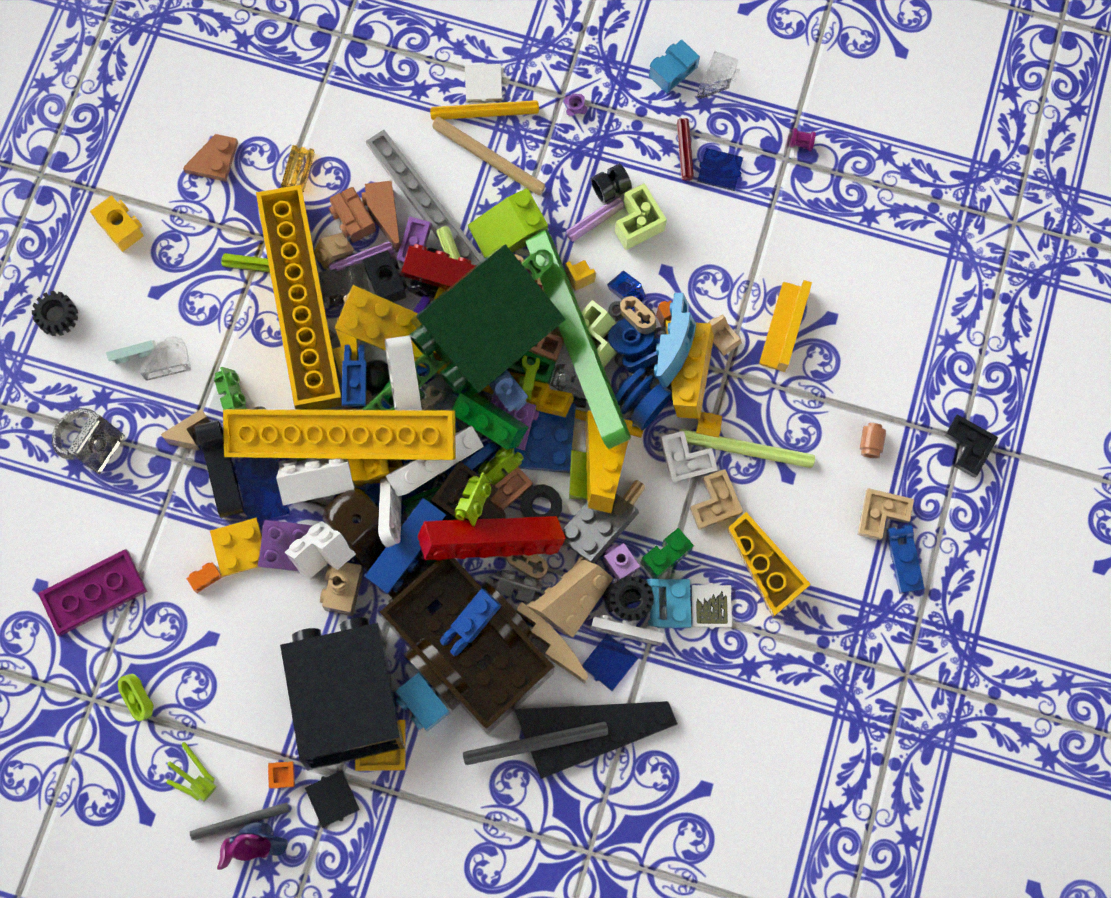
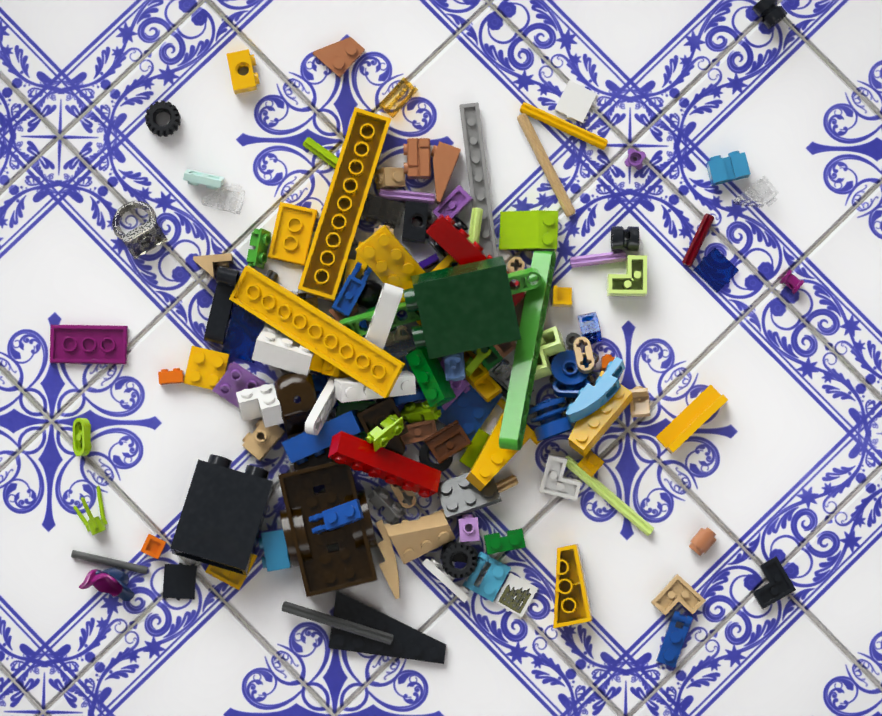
camera: 30 degrees right, 10 degrees up
(259, 359) = (292, 234): none -> yellow tile
(546, 481) = (447, 442): none -> reddish brown plate
(609, 662) = (421, 594): clear blue piece -> none
(722, 504) = (566, 527): tan plate -> none

